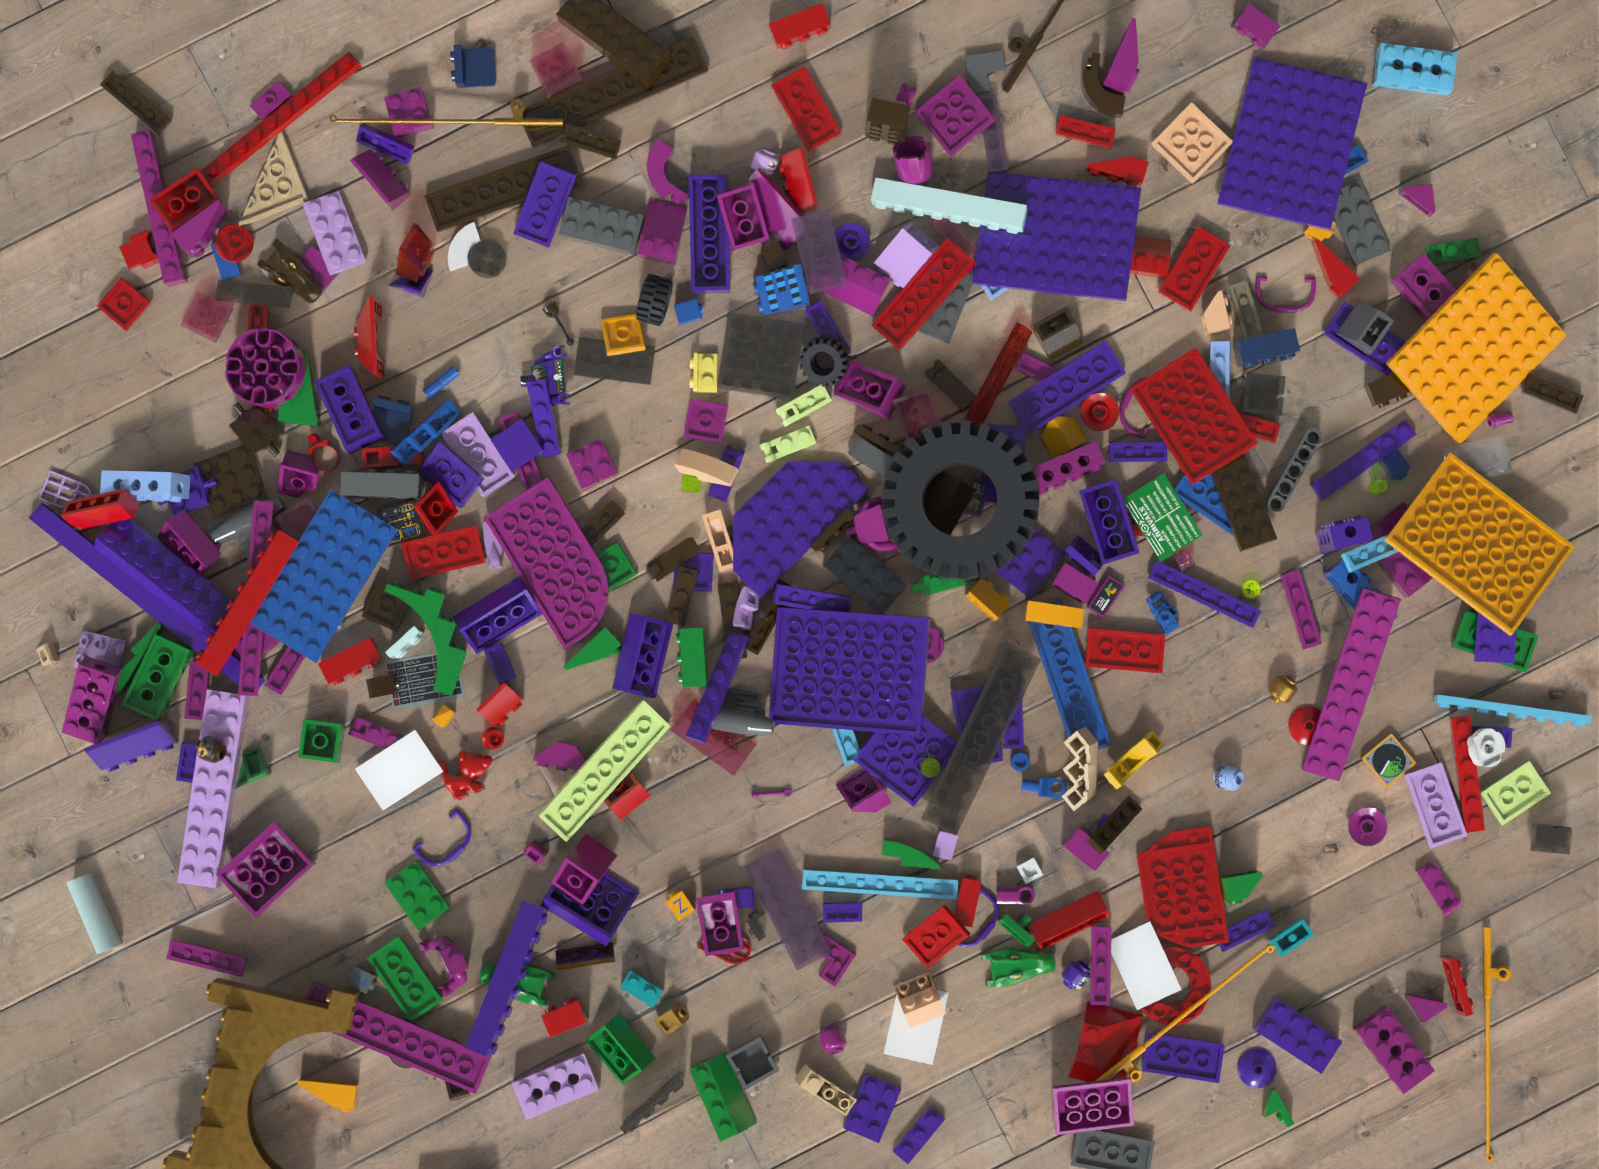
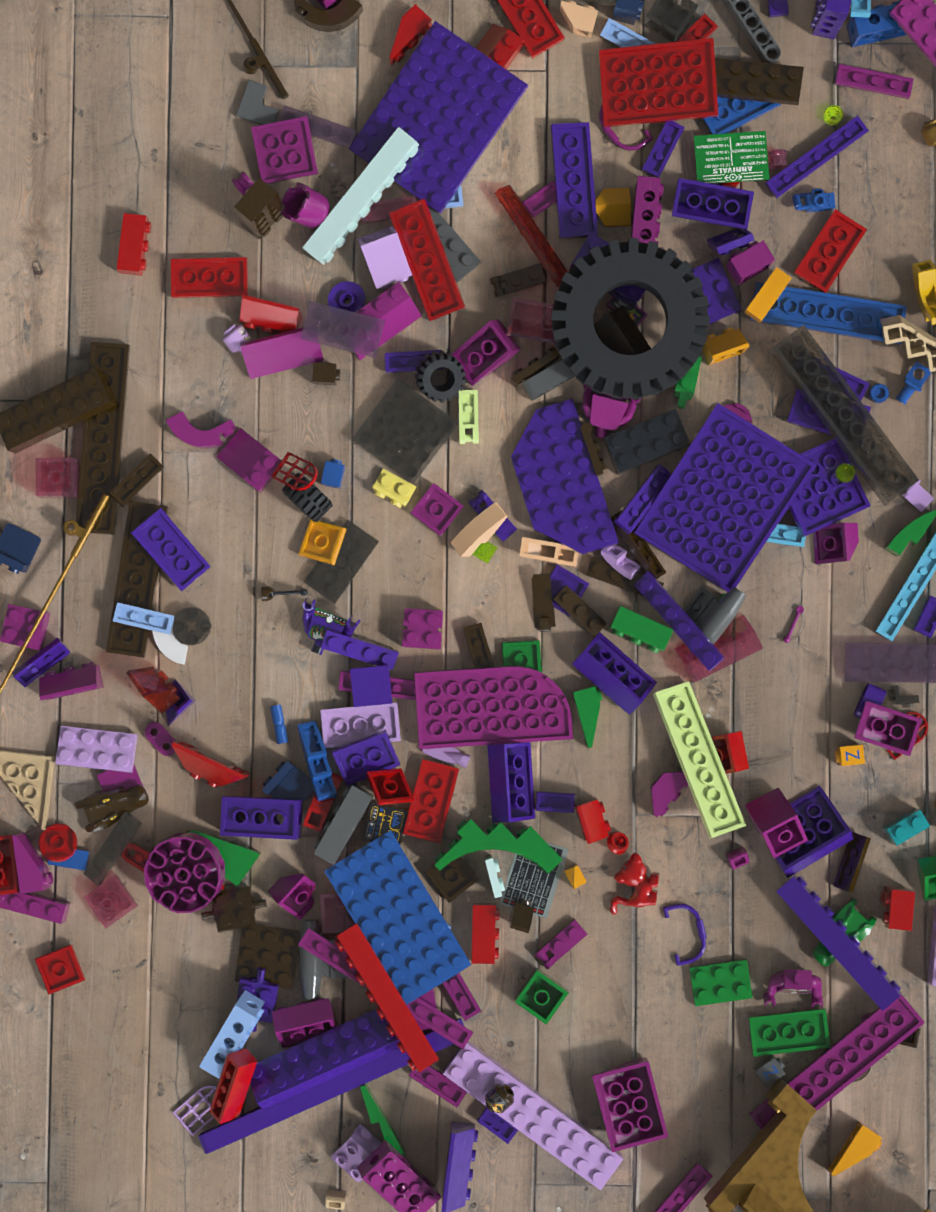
camera: 60 degrees left, 0 degrees up
(139, 251) = (20, 930): red piece -> none
(145, 677) = (406, 1125): green brick -> none
(252, 767) = (532, 1069): green slope -> none
(315, 440) = (270, 862): red piece -> none
(372, 284) = (160, 739): none -> magenta plate
(399, 770) = (602, 940): white sticker -> none
(470, 212) = (143, 618): none -> light blue plate
(601, 226) = (216, 510): dark grey brick -> none
(674, 273) = (298, 479): none -> red window
(708, 236) = (274, 419): dark purple brick -> none
(742, 215) = (274, 380): magenta slope -> none
(781, 291) = (358, 381): blue slope -> none
(788, 444) = (495, 447): yellowish green plate -> none
(1057, 333) = (523, 163): dark brown slope -> none
(1085, 132) = (359, 46): red plate -> none
(1105, 596) = (774, 242): tile -> none
(1109, 410) = (613, 154): red dish -> none

